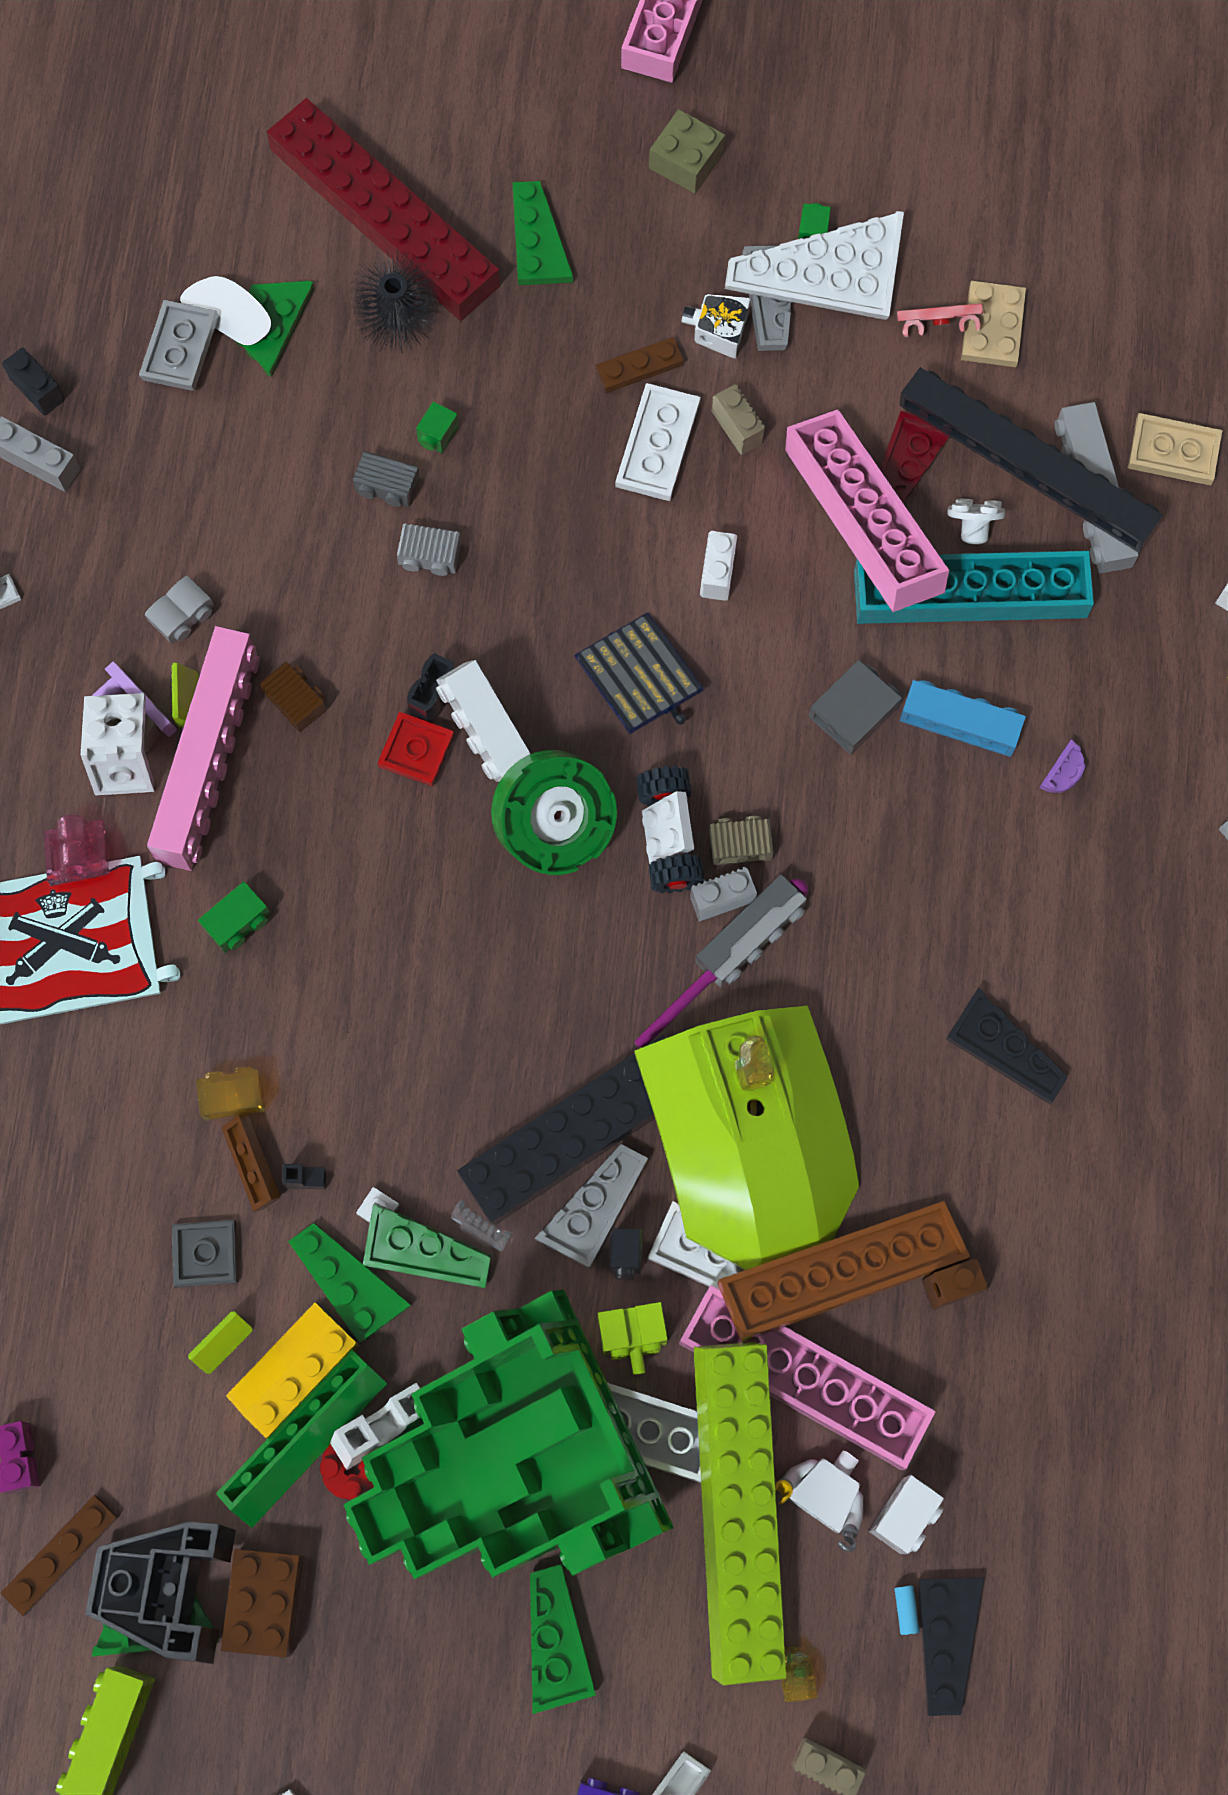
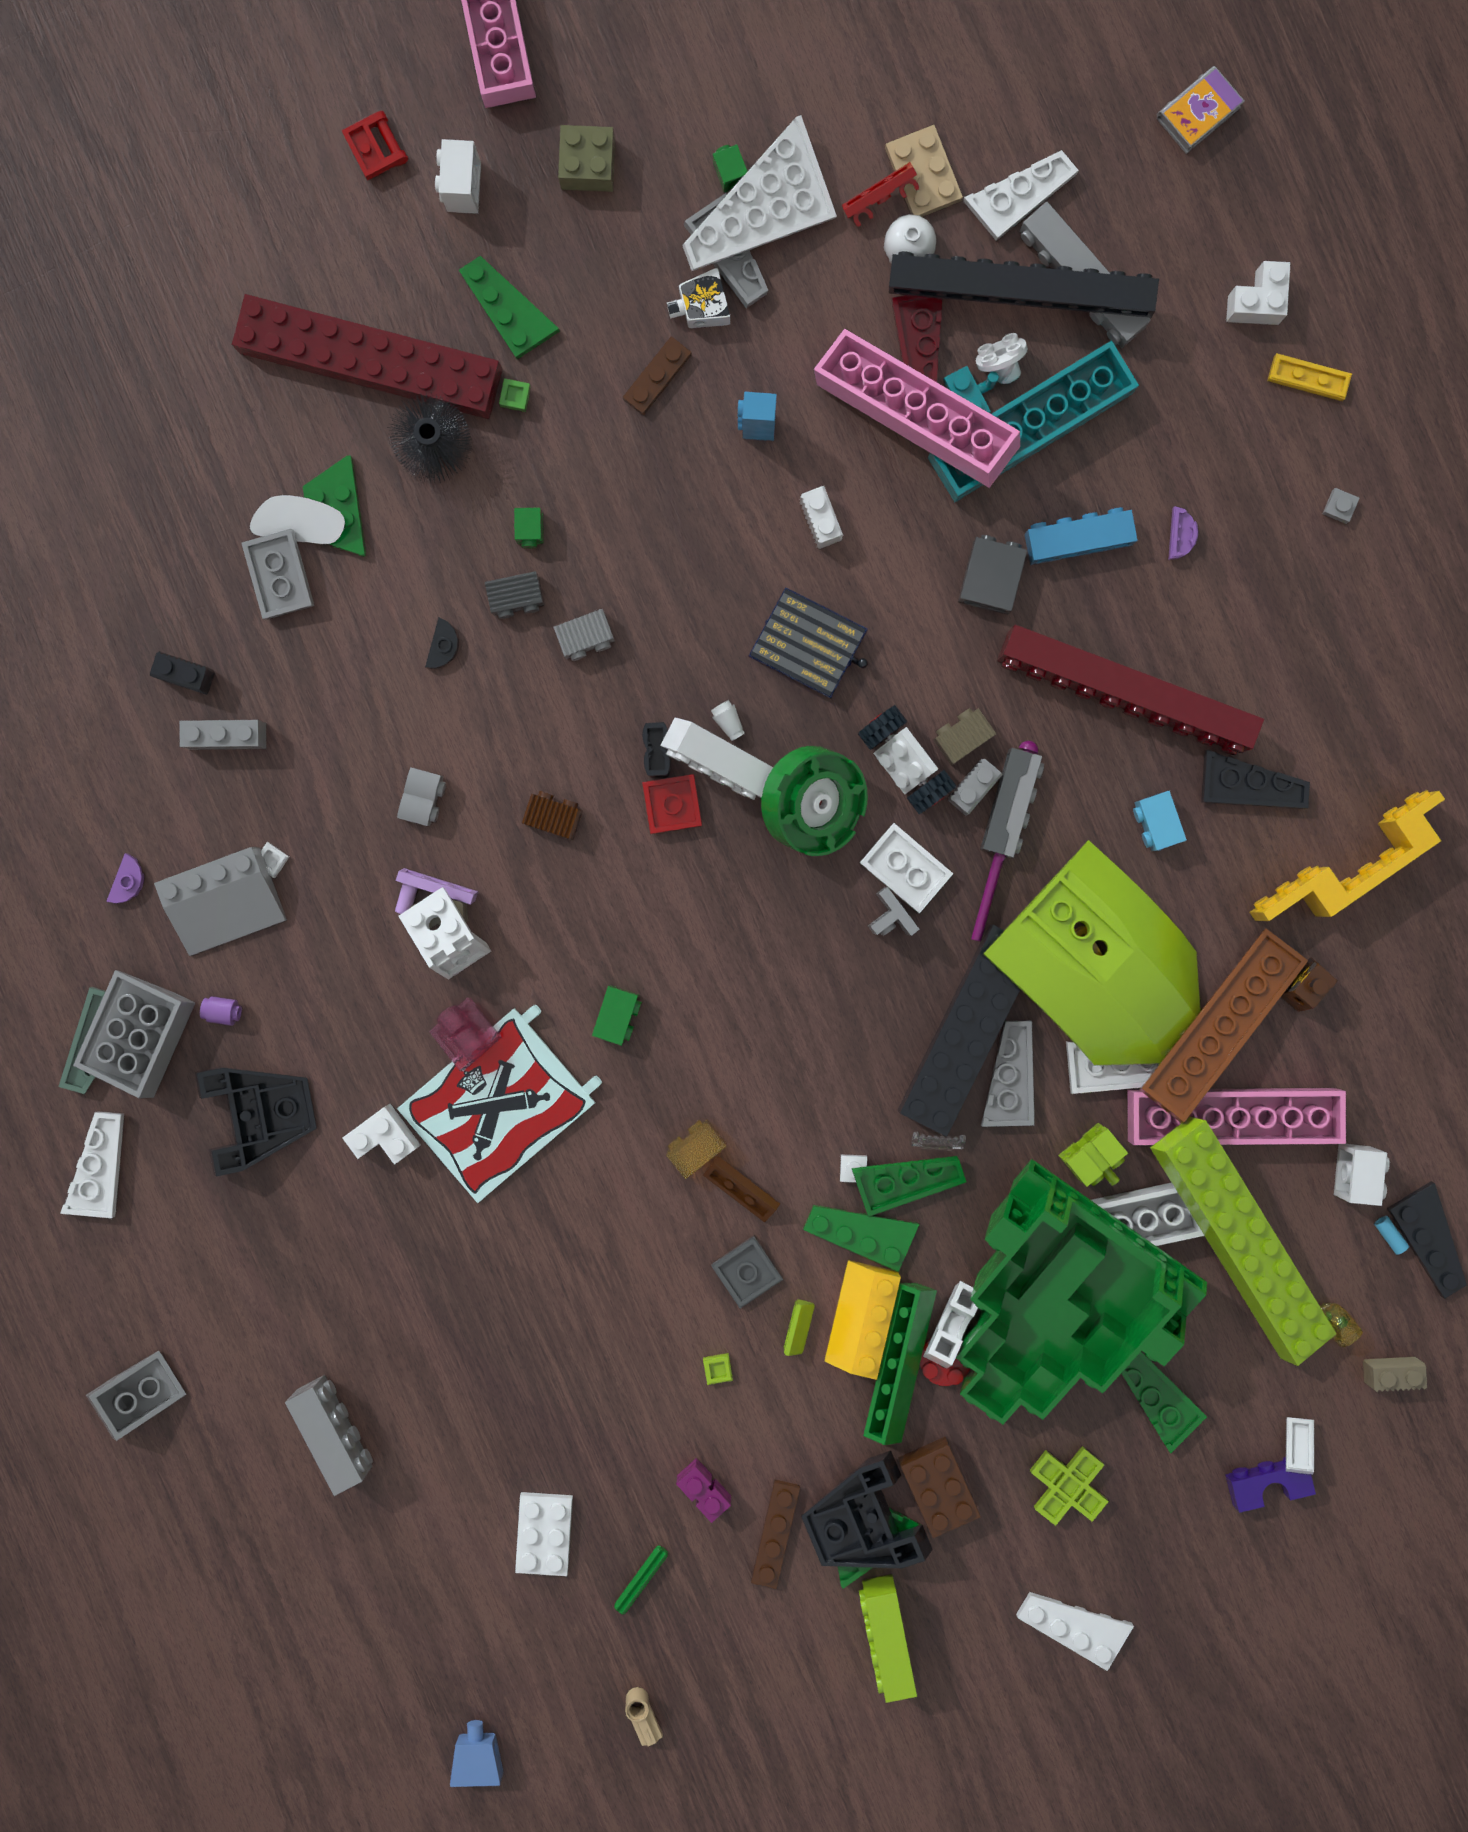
camera: 25 degrees left, 15 degrees up
(111, 1338) = (717, 1369): none -> lime tile
(183, 689) = (469, 863): lime slope -> none
(203, 749) = (512, 899): bright pink brick -> none
(290, 490) = (443, 645): none -> black plate
(300, 1177) = (786, 1178): black piece -> none
(402, 1687) = (1069, 1485): none -> lime plate
(493, 45) = (366, 148): none -> red plate
(496, 311) = (514, 395): none -> bright green plate
(518, 700) = (728, 720): none -> white cone
(561, 104) = (459, 176): none -> white brick
(561, 970) = (895, 912): none -> light grey bracket
(609, 936) = (906, 868): none -> white plate
(625, 1253) = (1057, 1102): black brick -> none
(657, 442) = (711, 436): white plate -> none
(710, 439) = (757, 415): none -> dark azure brick
(738, 419) = (763, 378): dark tan brick -> none
(754, 1064) = (1084, 919): clear yellow rock -> none
(827, 1494) = (1295, 1189): white torso -> none
(891, 1029) = (1159, 821): none -> medium azure brick
(928, 521) = (964, 385): none -> teal plate
(929, 884) = (1130, 690): none -> dark red brick
(951, 366) = (910, 234): none -> white cylinder
(1021, 1188) = (1327, 896): none -> yellow bracket
(1053, 388) = (1011, 200): none -> white wing
(1175, 449) = (1129, 204): tan plate -> none

